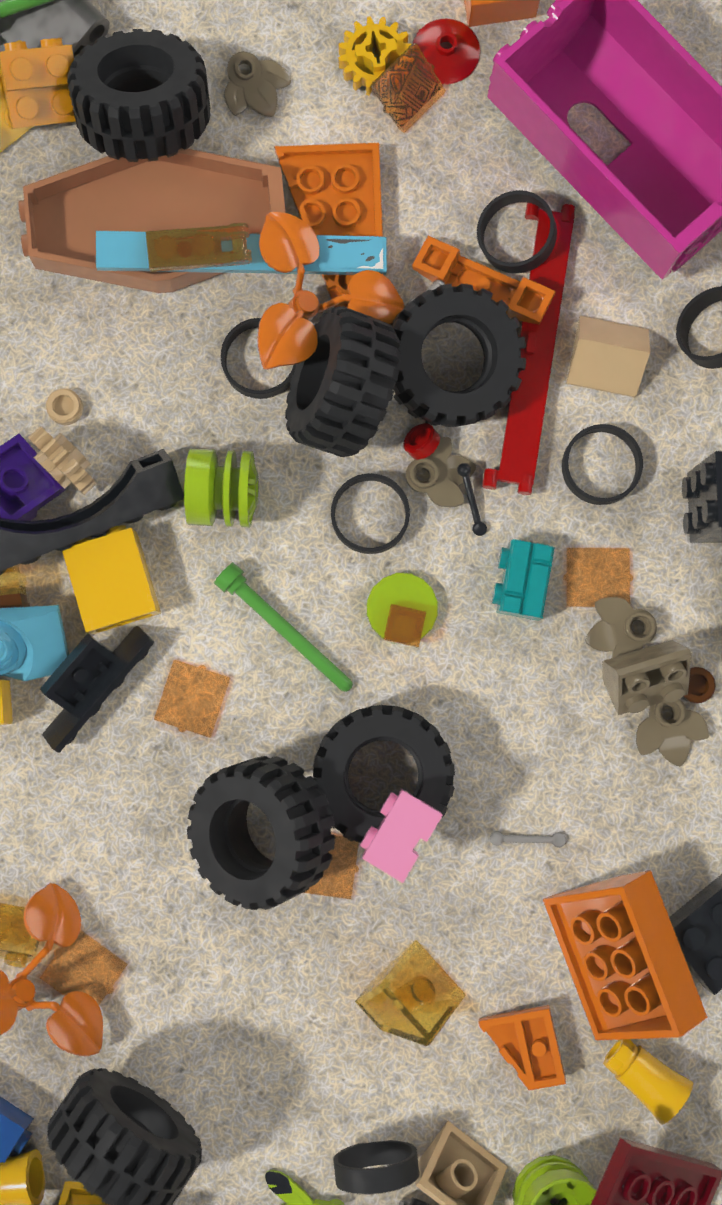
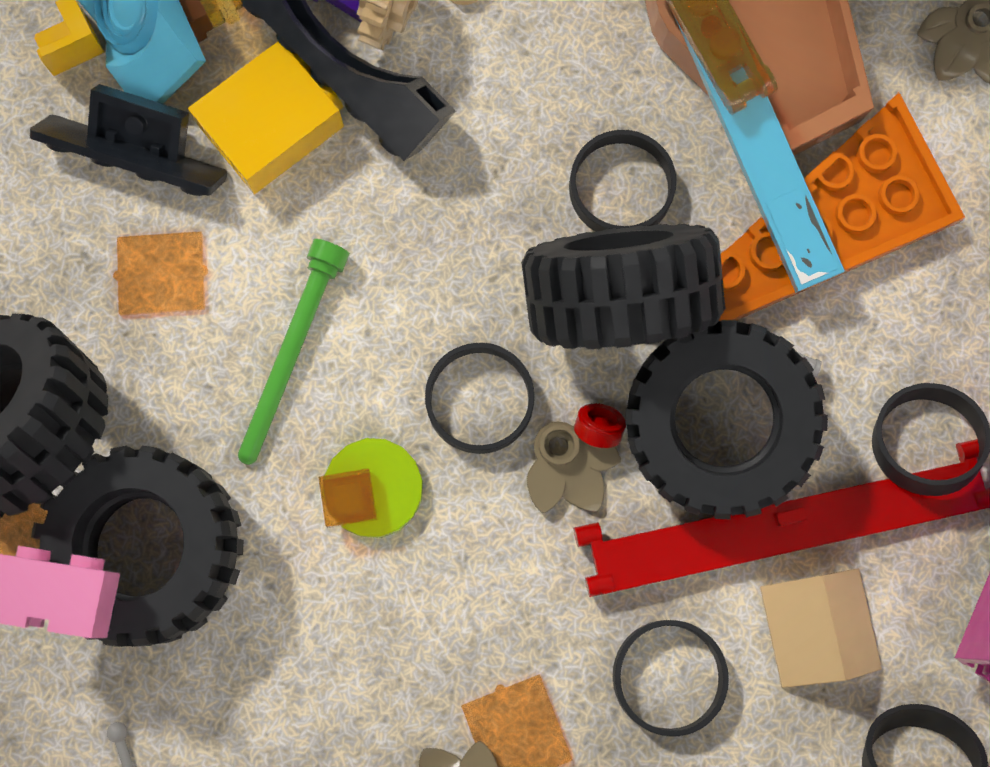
camera: 65 degrees right, 5 degrees down
(220, 488) = (431, 194): lime wheel -> none
(286, 329) = (652, 197): orange plant -> none
(443, 262) = (842, 474): orange slope -> none
(478, 527) = (520, 546): black hinge -> none
(524, 579) = (470, 632): teal brick -> none

